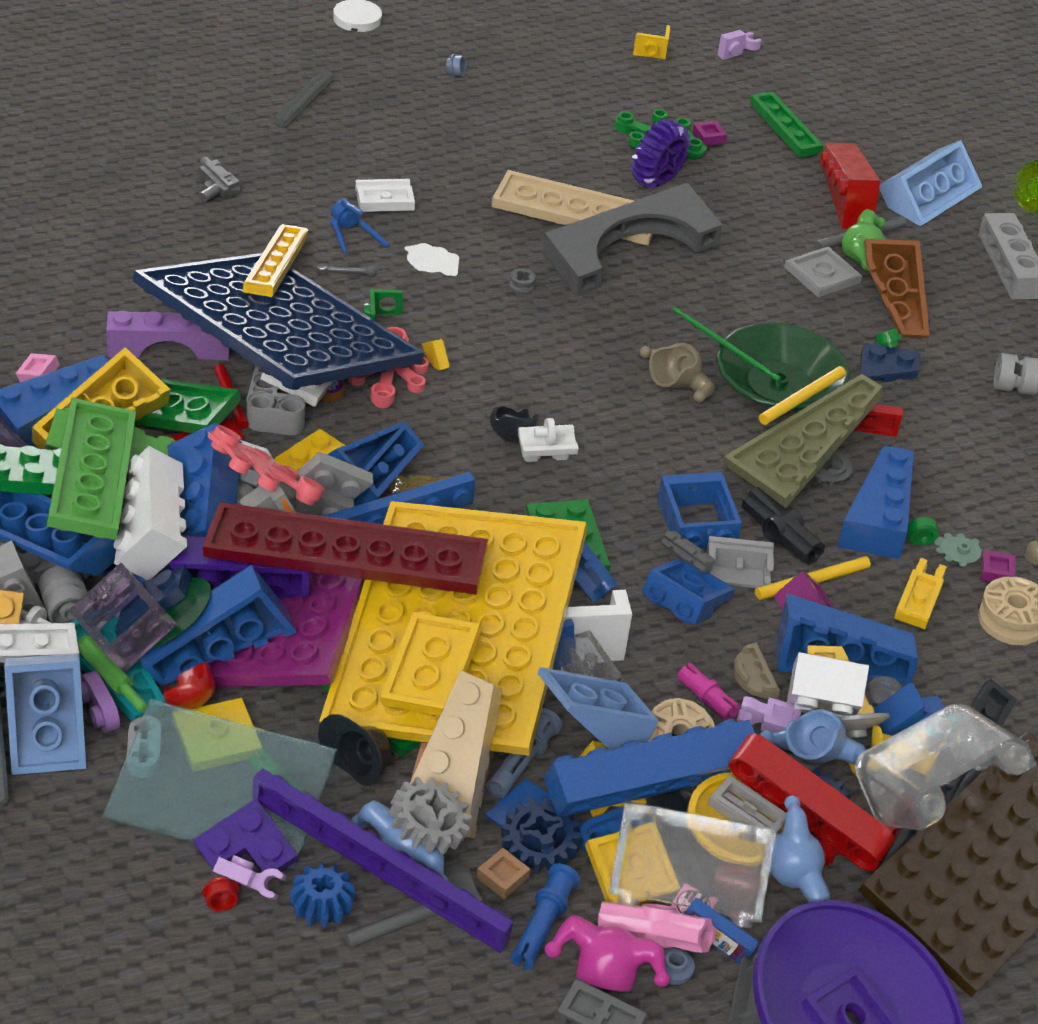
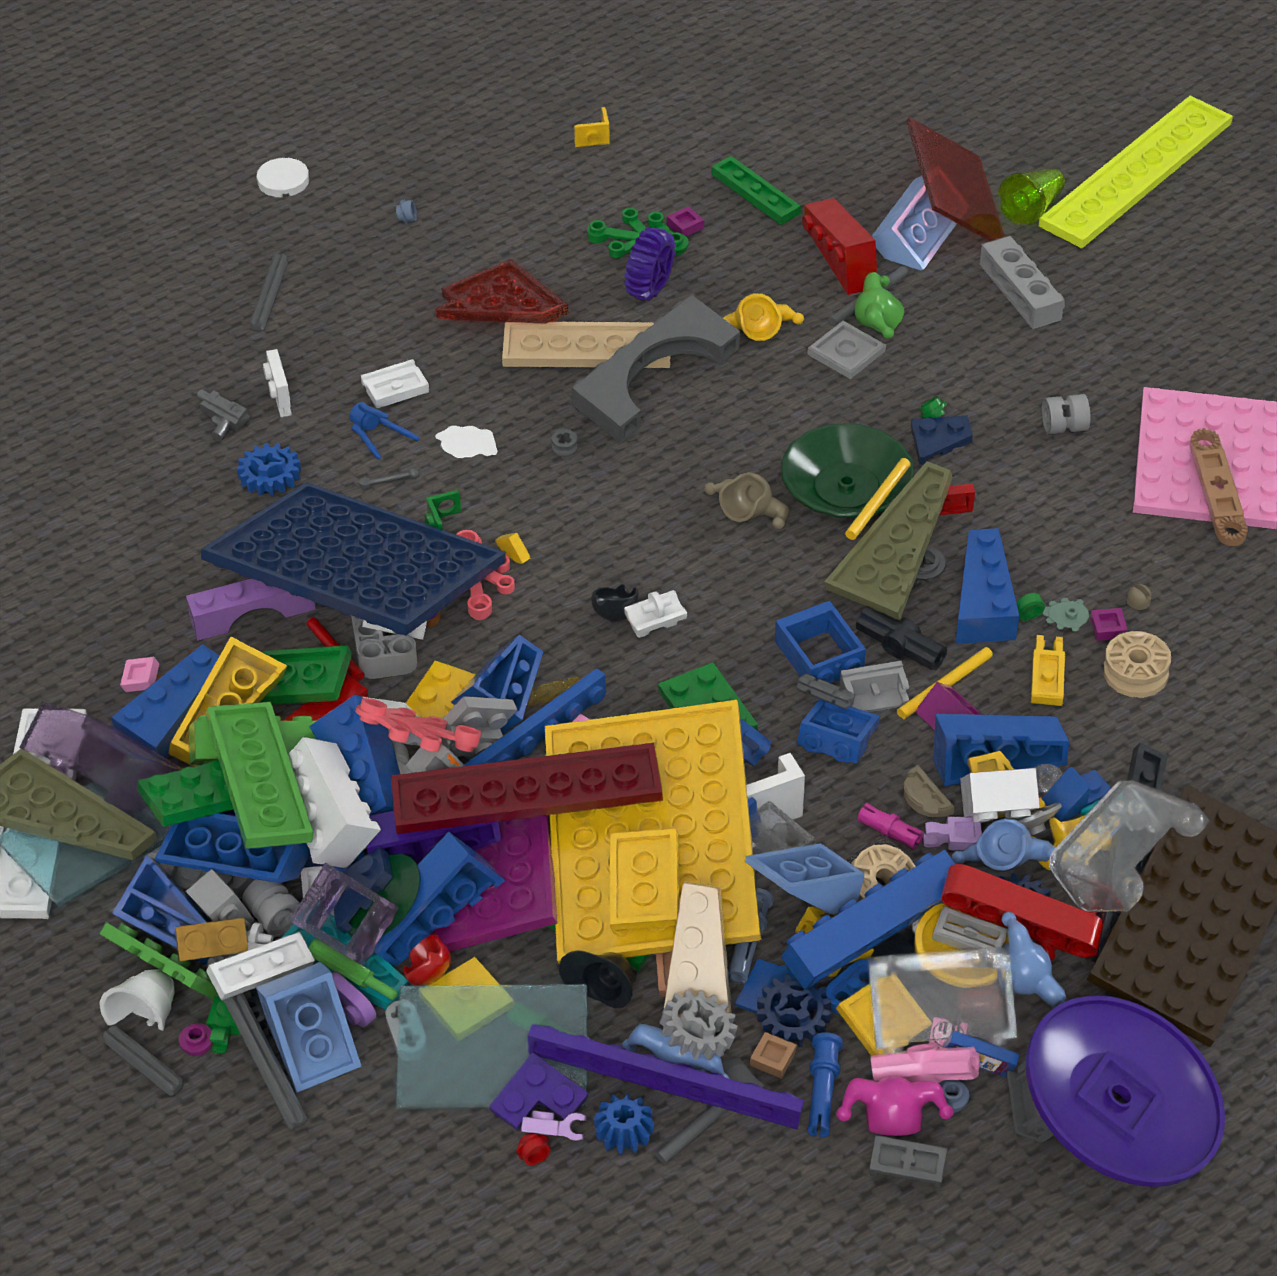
camera: 10 degrees left, 5 degrees up
(237, 233) = (269, 469): none -> blue gear
(275, 166) = (278, 385): none -> white plate
(275, 260) = (323, 491): yellow tile -> none
(512, 148) = (501, 295): none -> clear red wing
(726, 344) = (789, 463): green piece -> none
(734, 42) = (673, 108): lavender plate -> none
(750, 222) = (761, 317): none -> yellow piece
(900, 281) = (924, 341): dark orange wedge -> none
(976, 157) = (955, 182): none -> clear red piece

